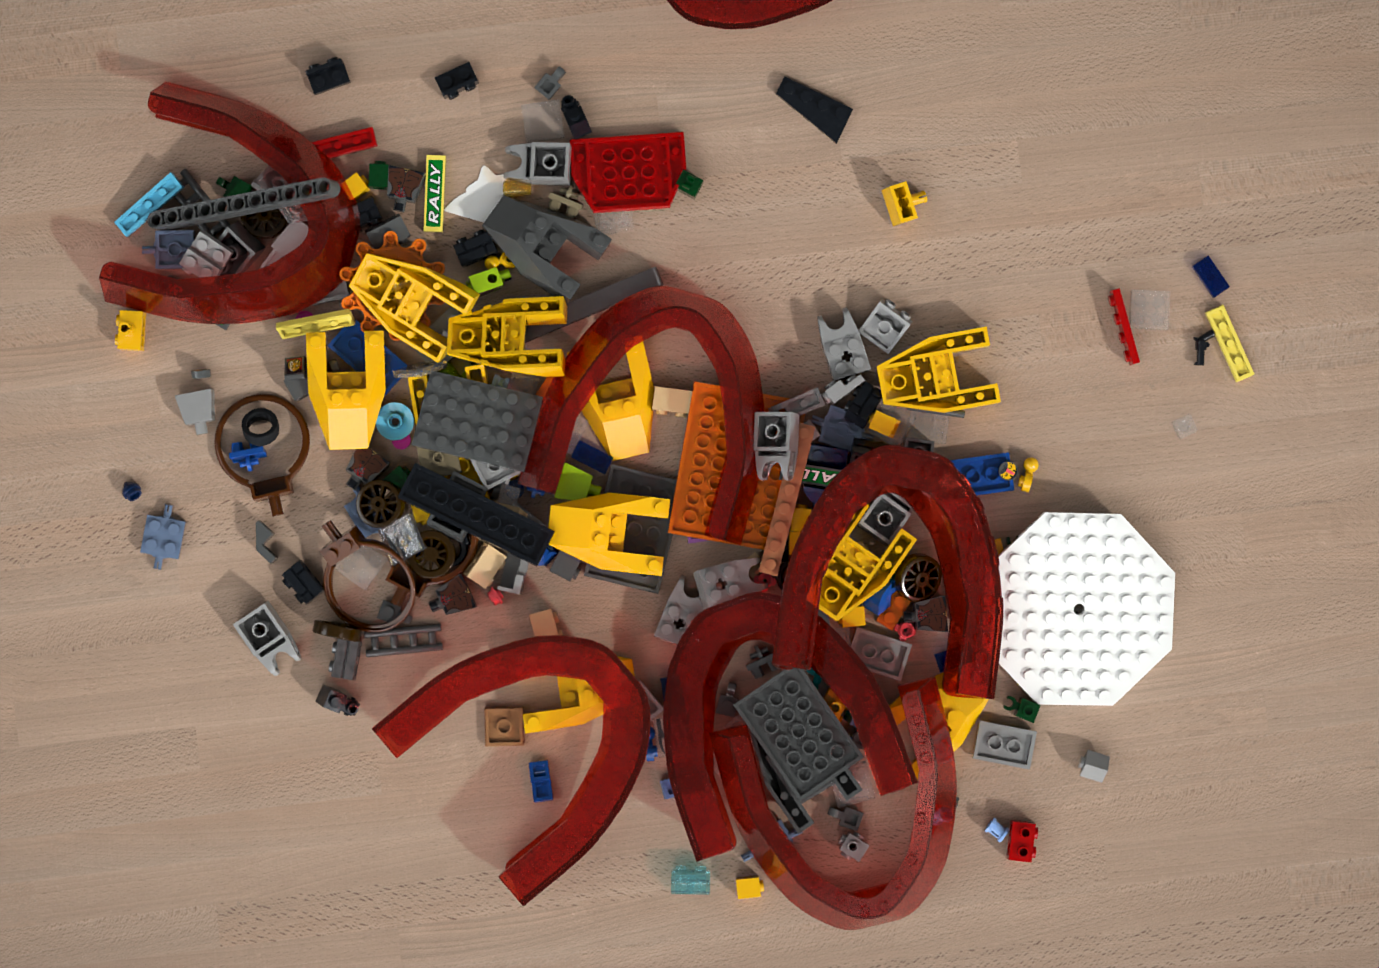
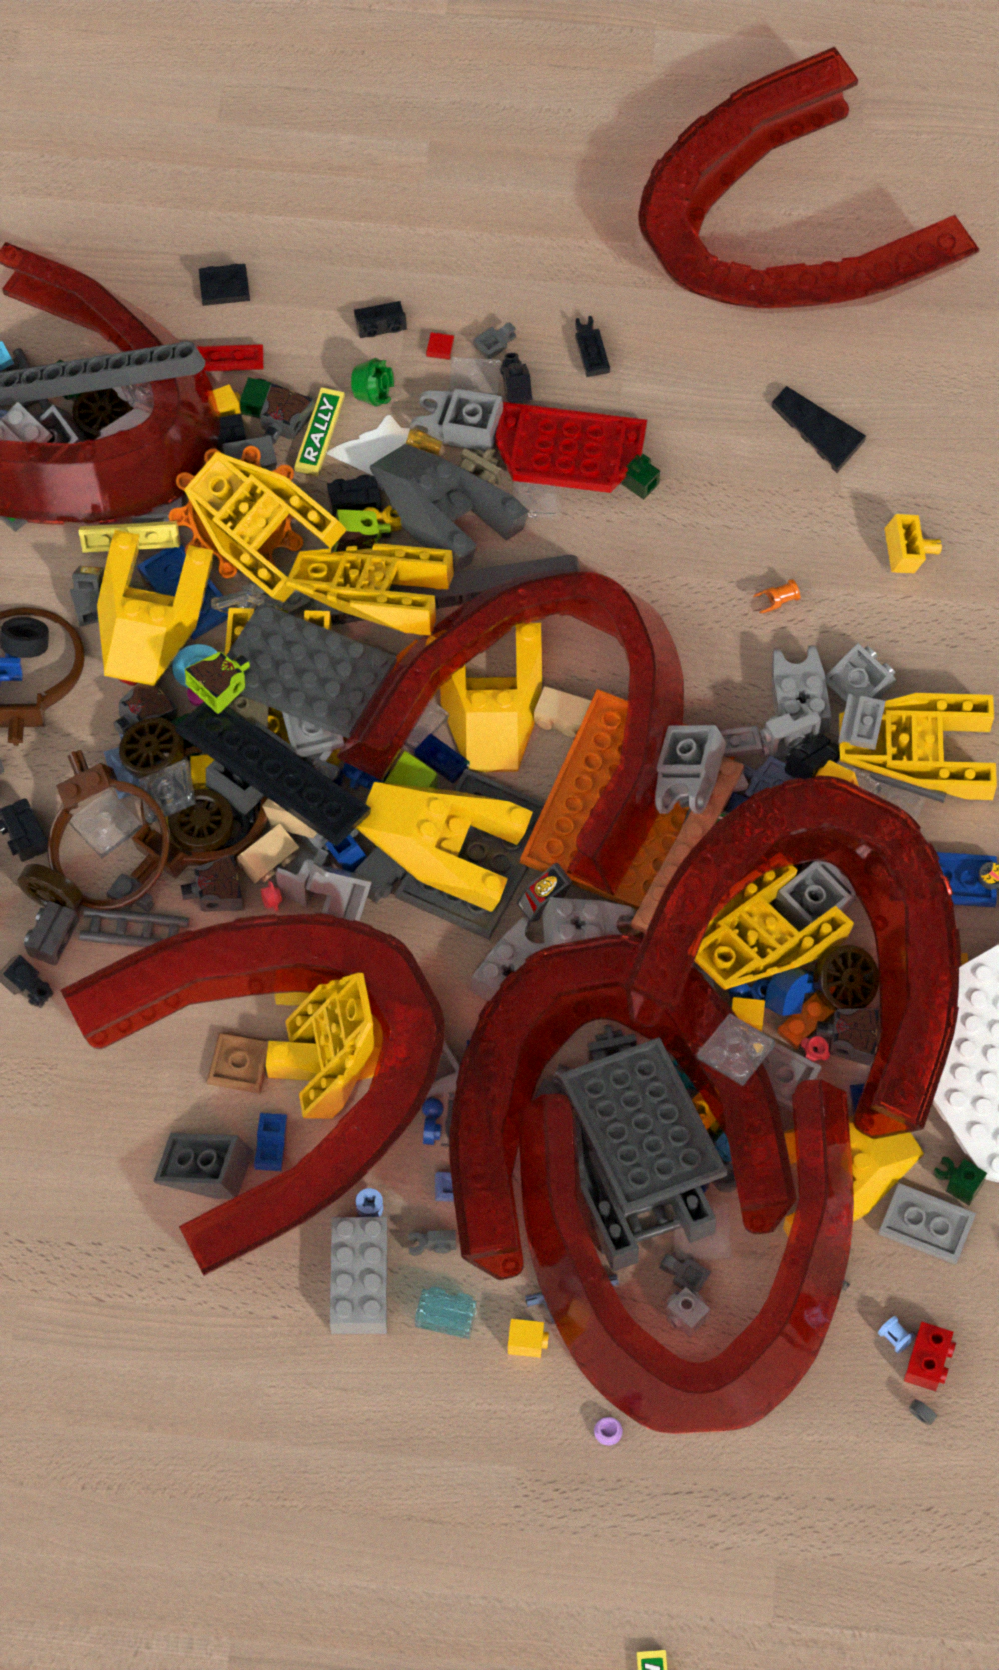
camera: 10 degrees right, 25 degrees down
(418, 452) = (217, 679): none -> torso
(465, 146) = (372, 381): none -> green cone
(499, 810) = (204, 1164): none -> dark grey slope
(509, 95) = (440, 346): none -> red tile
(548, 589) = (344, 891): none -> light grey panel
(575, 713) = (341, 1026): none -> yellow wedge
(624, 814) = (369, 1209): none -> light blue wheel
(625, 868) = (359, 1275): none -> light grey brick
(627, 74) = (591, 349): none -> black plate
(675, 831) = (437, 1241): none -> dark grey plate
(690, 554) = (535, 896): none -> slope
(812, 266) = (780, 595): none -> orange piece
(816, 938) = (608, 1431): none -> lavender plate
(855, 677) = (736, 1049): none -> clear plate
(894, 373) = (862, 721): none -> light grey plate
(1023, 880) = (922, 1412): none -> dark grey tile

